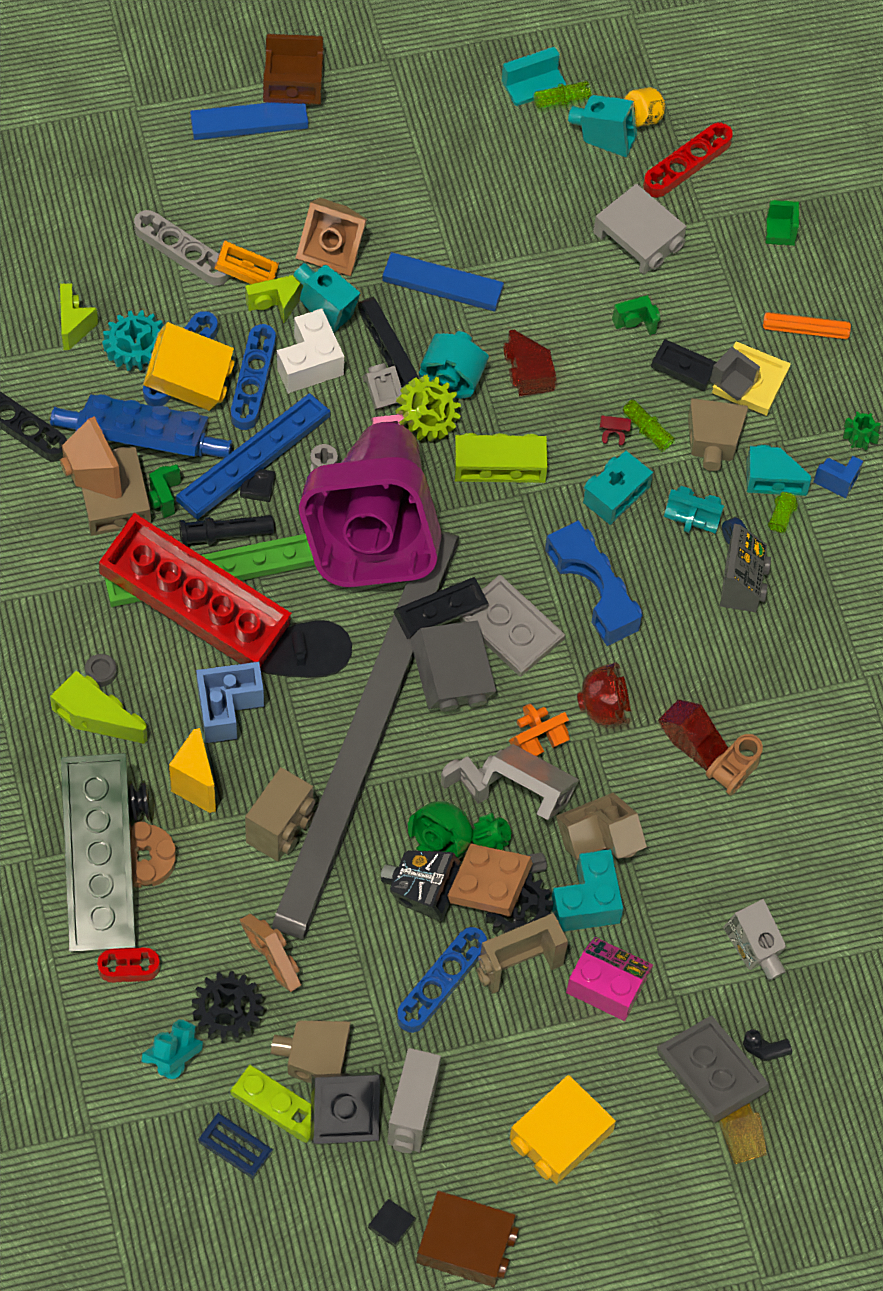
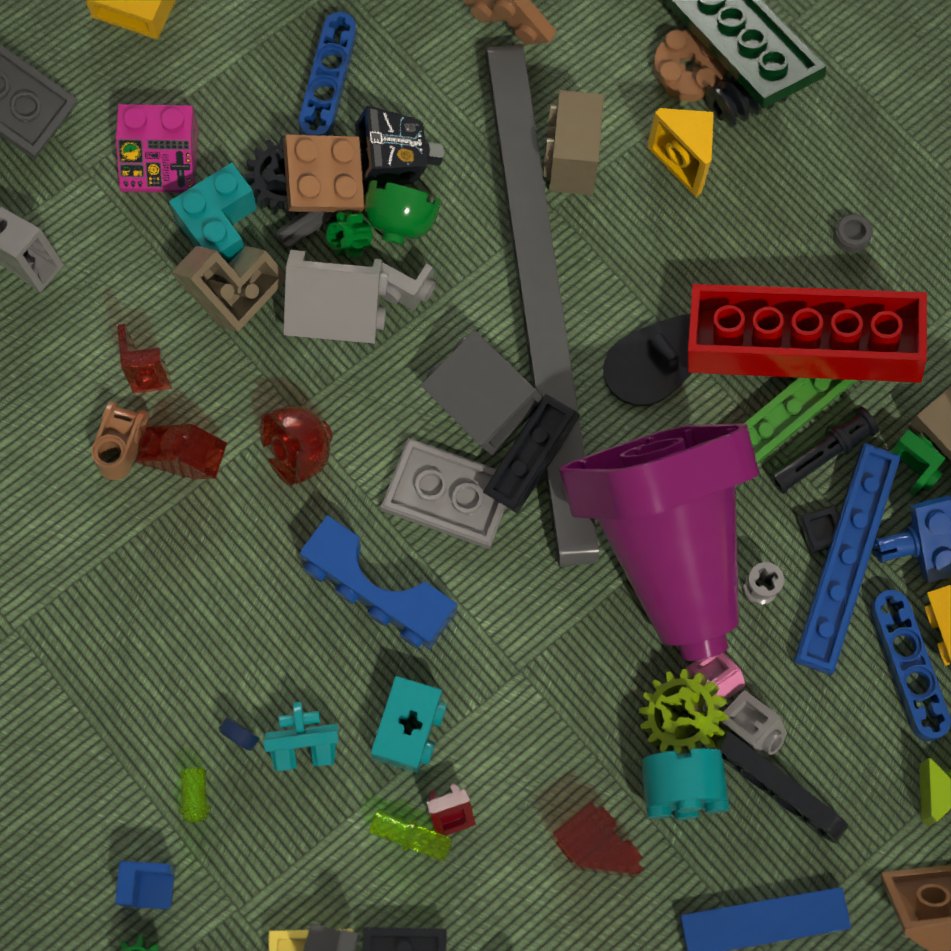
camera: 155 degrees right, 10 degrees up
(91, 710) = (834, 178): lime slope -> none
(226, 690) = (710, 245): medium blue brick -> none
(315, 355) = (853, 726): white brick -> none
(328, 292) = (873, 797): teal torso -> none
(500, 458) = (565, 695): lime brick -> none
(520, 945) = (259, 121): dark tan panel -> none
(554, 729) = (356, 376): orange hips -> none
(696, 795) = (142, 368): none -> clear red panel
(715, 430) = (321, 865): dark tan torso -> none
(744, 571) = (204, 677): dark grey slope -> none
(774, 471) = (227, 843): teal slope -> none

